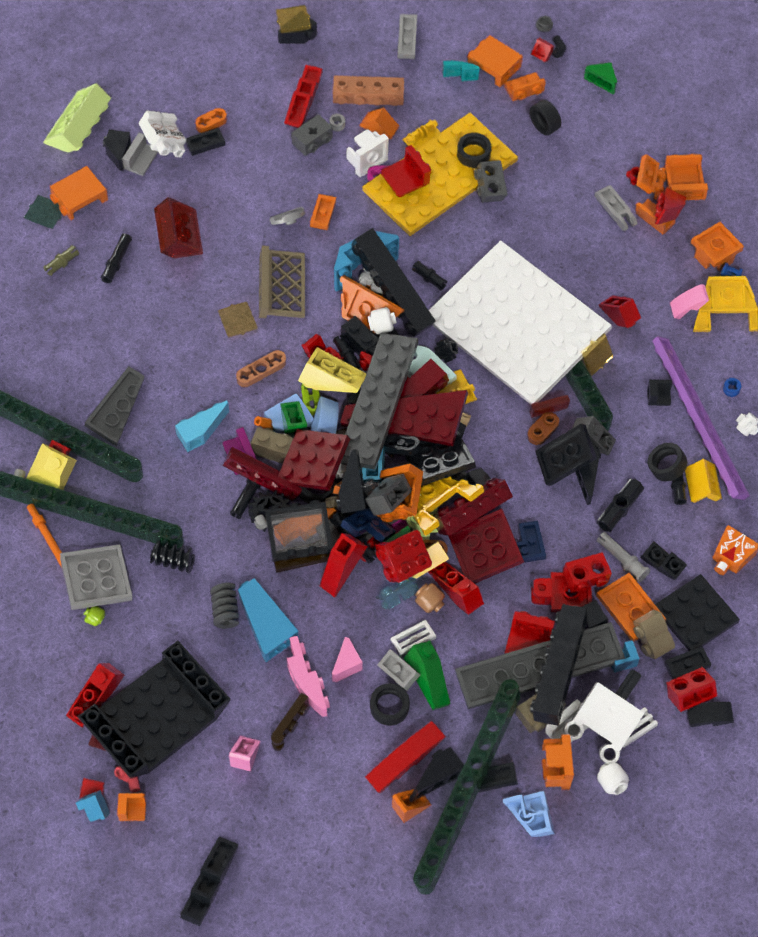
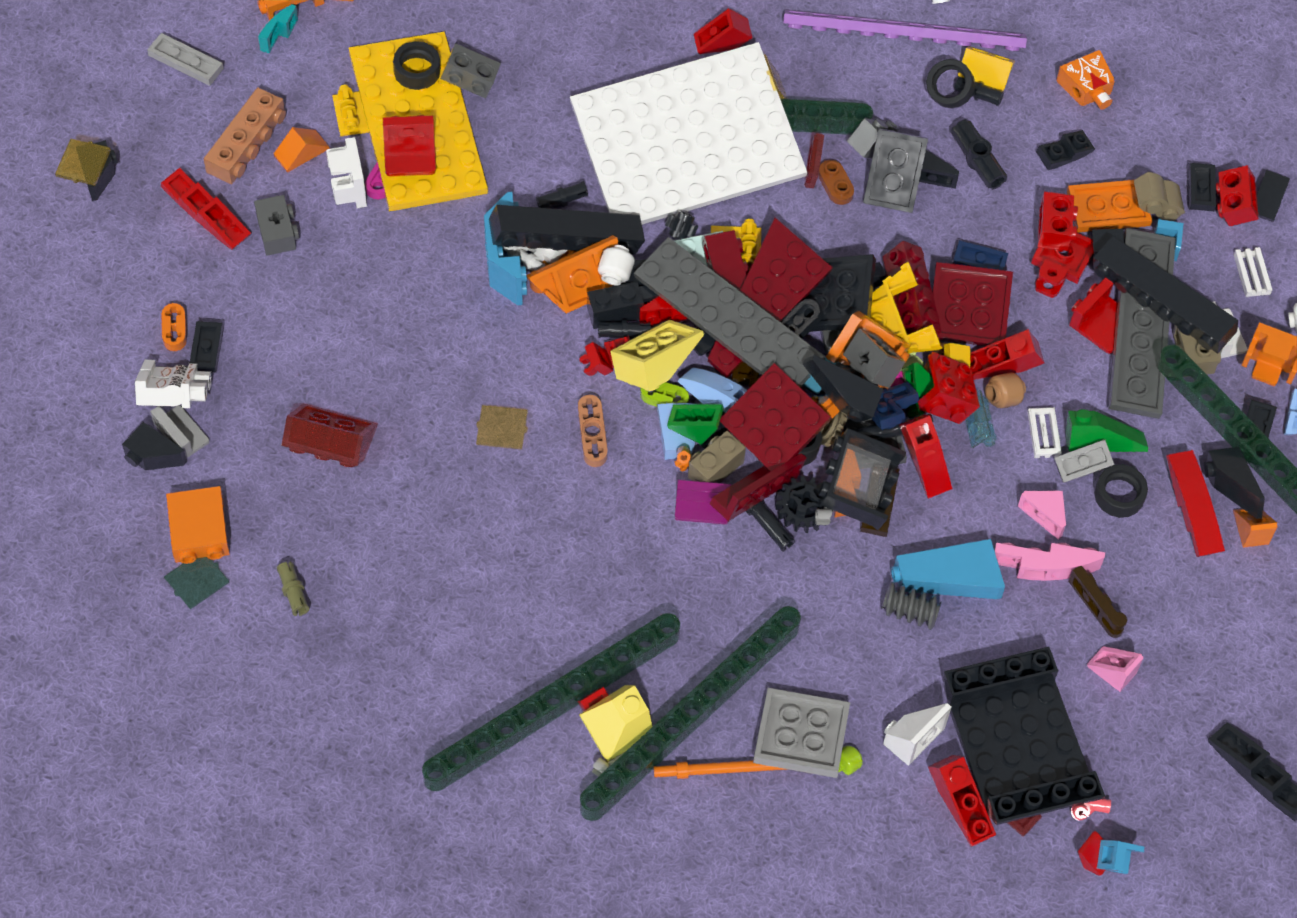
camera: 65 degrees left, 0 degrees up
(78, 119) = (71, 478): yellowish green slope -> none
(113, 263) = (336, 530): black pin -> none
(114, 410) = (564, 620): dark grey wing -> none
(126, 644) = (915, 732): none -> white slope
(131, 806) = (1131, 819): orange panel -> none
(172, 556) = (814, 632): black piece -> none
(198, 429) = (646, 529): medium azure slope -> none
(266, 286) = (470, 369): dark tan fence -> none
(288, 217) = (383, 305): light grey plate -> none
(323, 212) = (399, 264): orange plate -> none
(337, 117) = (268, 184): light grey bush -> none
(609, 715) = (1245, 281): white piece -> none
(629, 562) = (1054, 180): light grey pin -> none
(659, 392) = (851, 53): black panel -> none
(696, 613) = (1143, 147): black plate -> none

